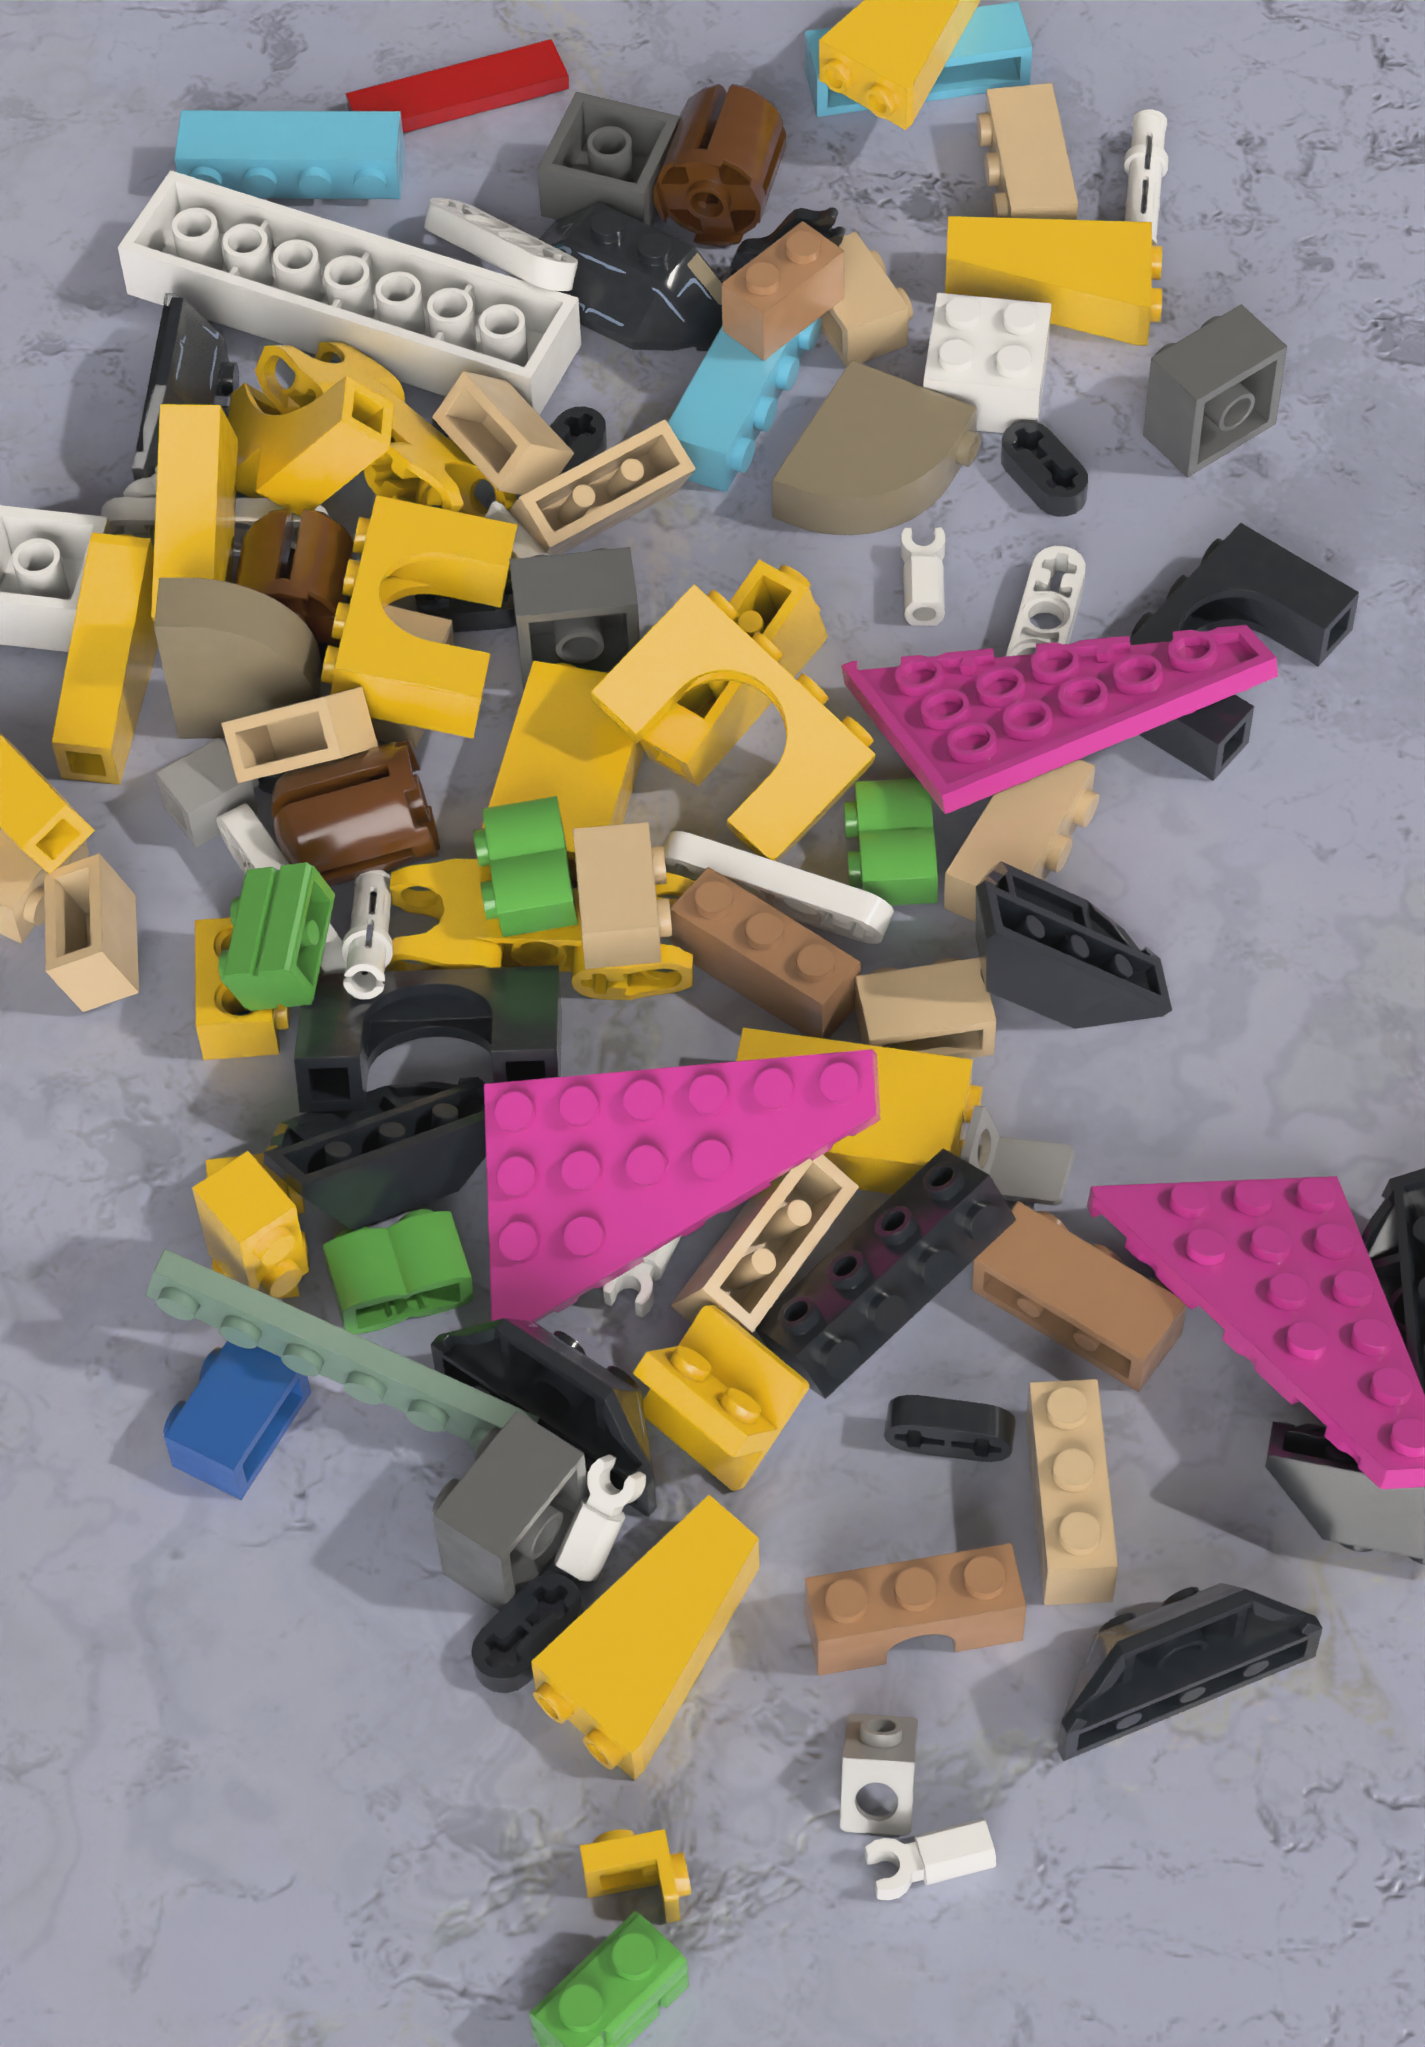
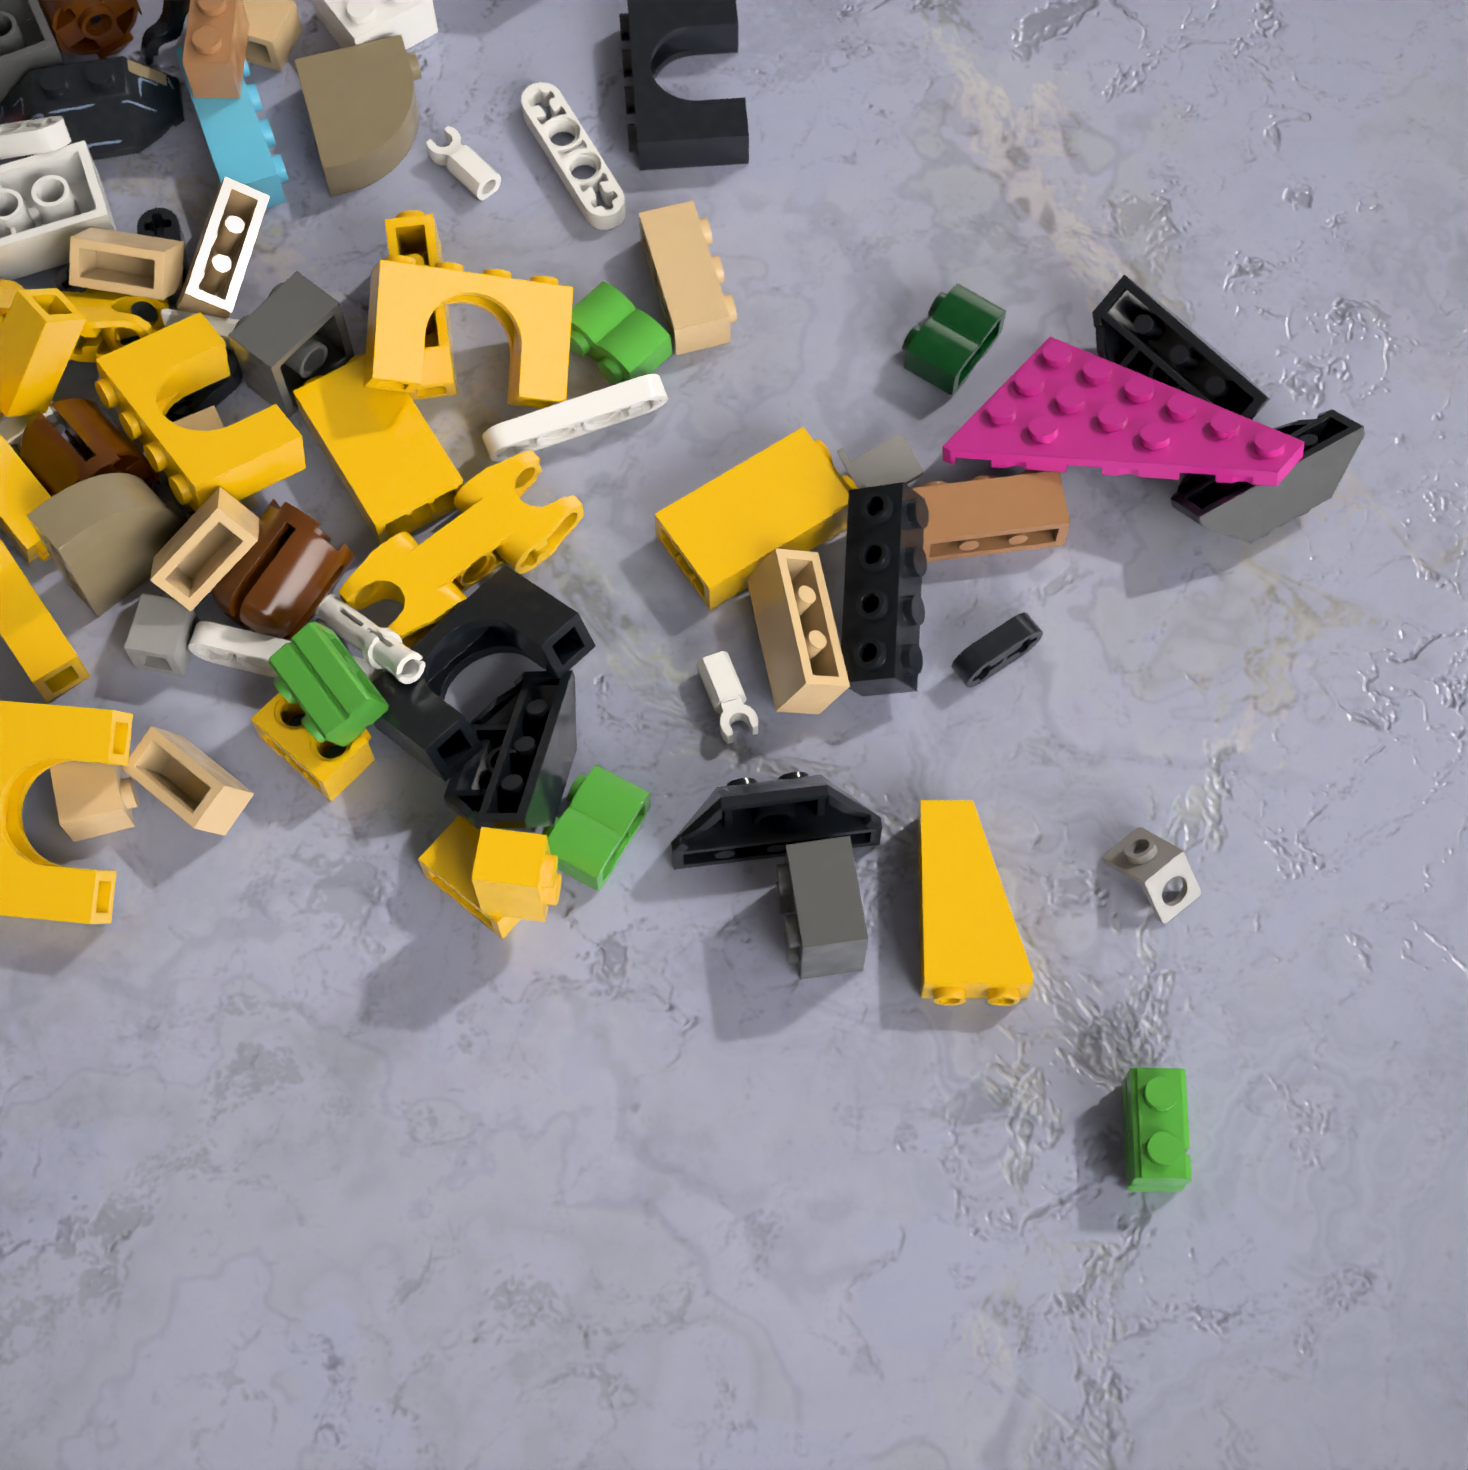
camera: 45 degrees left, 10 degrees up
(234, 1417) = (592, 993): blue brick -> none
(321, 1348) = (619, 910): sand green plate -> none
(516, 1622) = (900, 969): black beam -> none
(528, 867) = (433, 517): bright green brick -> none
(597, 1521) = (872, 871): white bar -> none
(619, 895) = (506, 491): tan brick -> none
(628, 1160) = (682, 647): dark pink wing -> none
(628, 1861) = (1078, 1047): yellow bracket -> none
(720, 1396) = (866, 737): yellow bracket -> none
(765, 955) = (615, 461): medium nougat brick -> none
(870, 1609) = (1085, 765): medium nougat arch -> none
(927, 1009) = (739, 421): tan brick -> none
(933, 1856) = (1231, 891): white bar -> none
(993, 722) = (626, 201): dark pink wing -> none
(1052, 463) = (467, 47): black beam -> none
(1062, 954) = (786, 326): black wedge -> none
(1071, 1492) = (1099, 628): tan brick -> none
(1179, 1659) = (1242, 675): black wedge -> none
(1230, 1100) = (953, 338): none -> dark green brick

